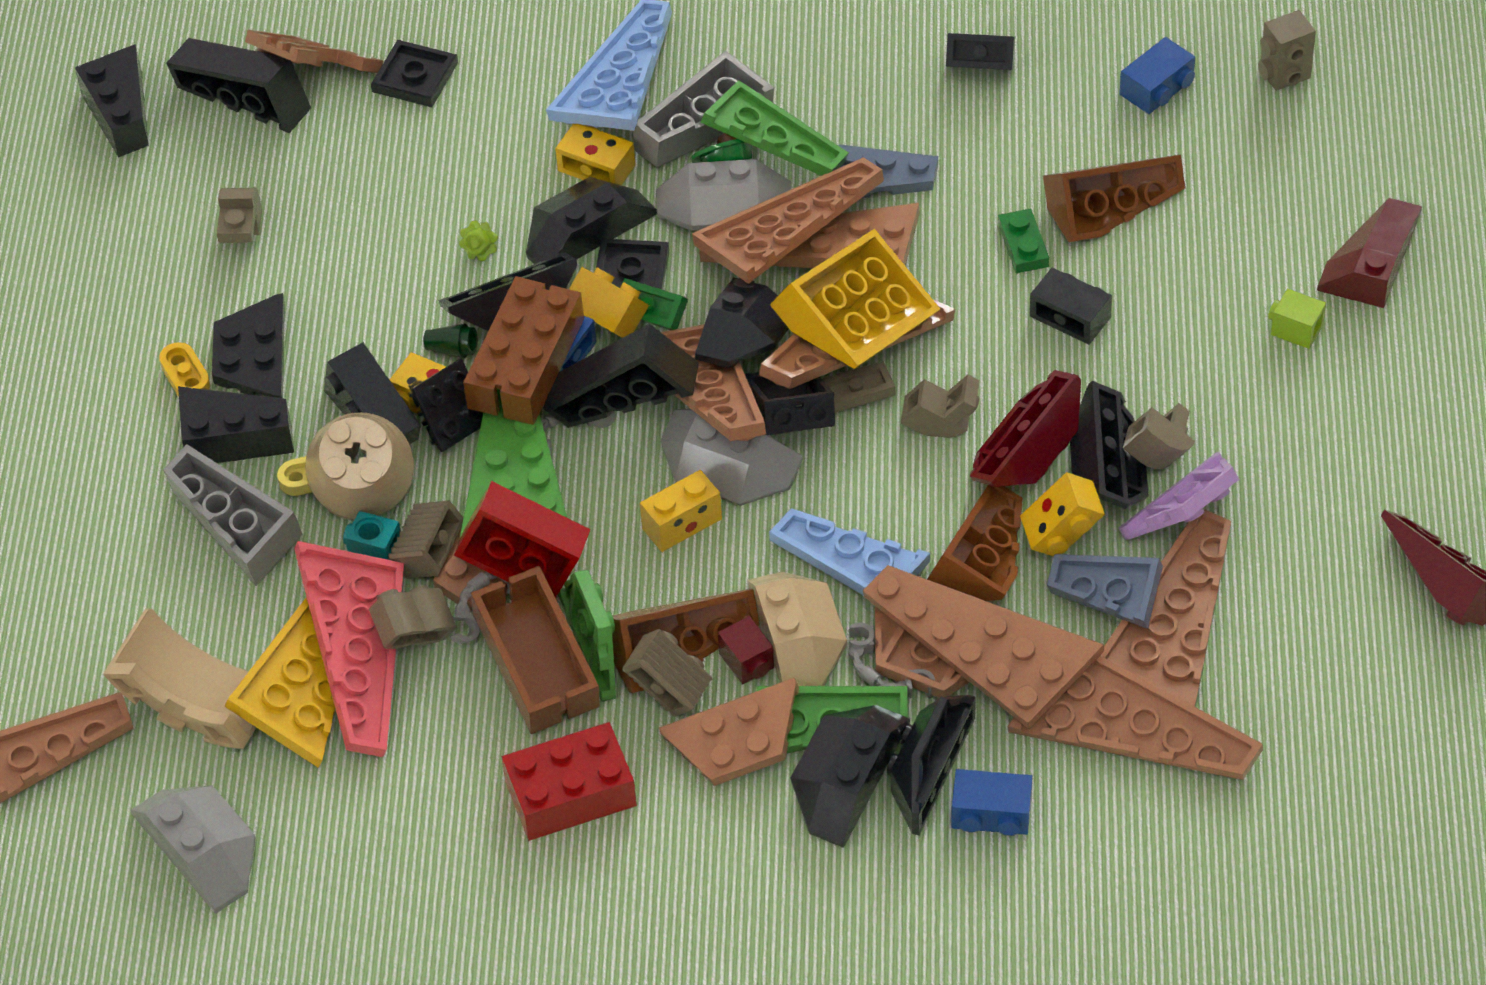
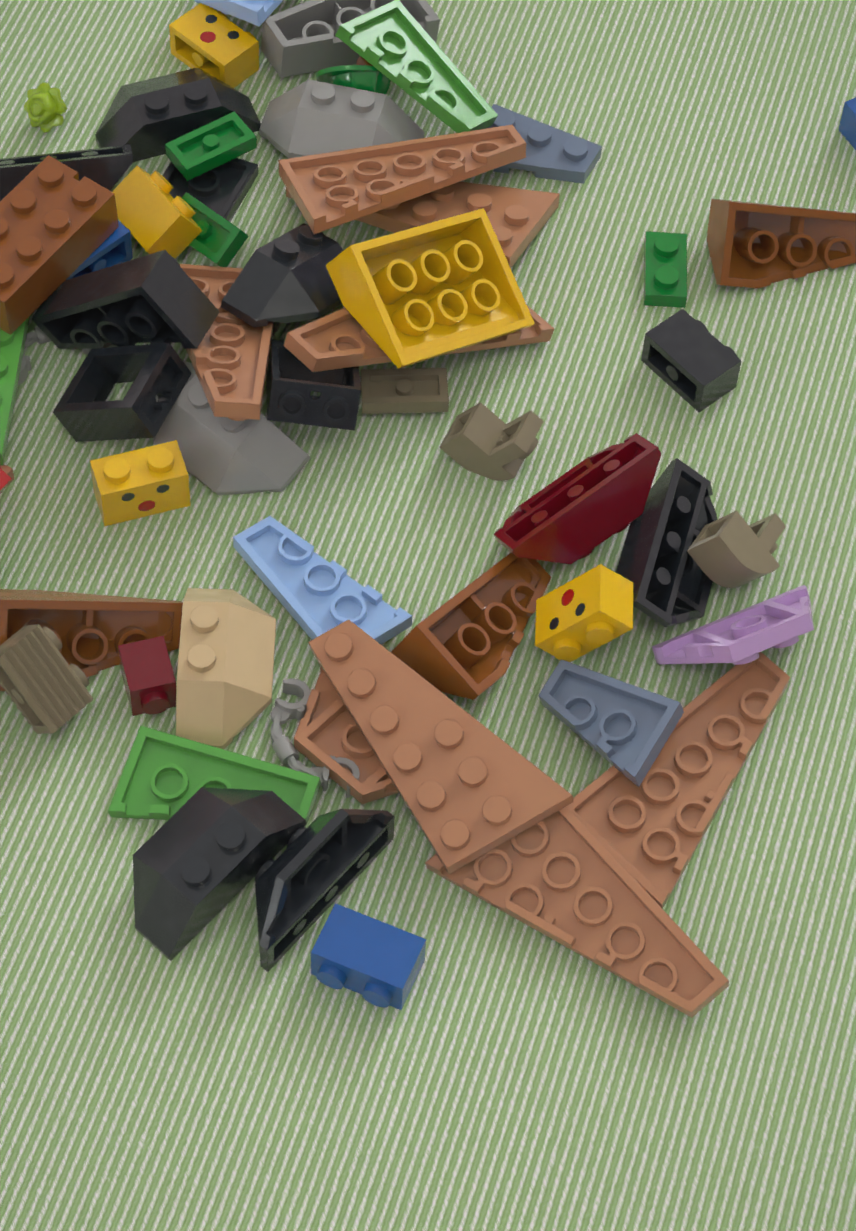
camera: 10 degrees right, 5 degrees up
(628, 236) = (211, 146): none -> green plate
(666, 458) = (151, 368): none -> black window
(737, 734) = (95, 780): nougat wing -> none
(980, 51) = (692, 39): black brick -> none

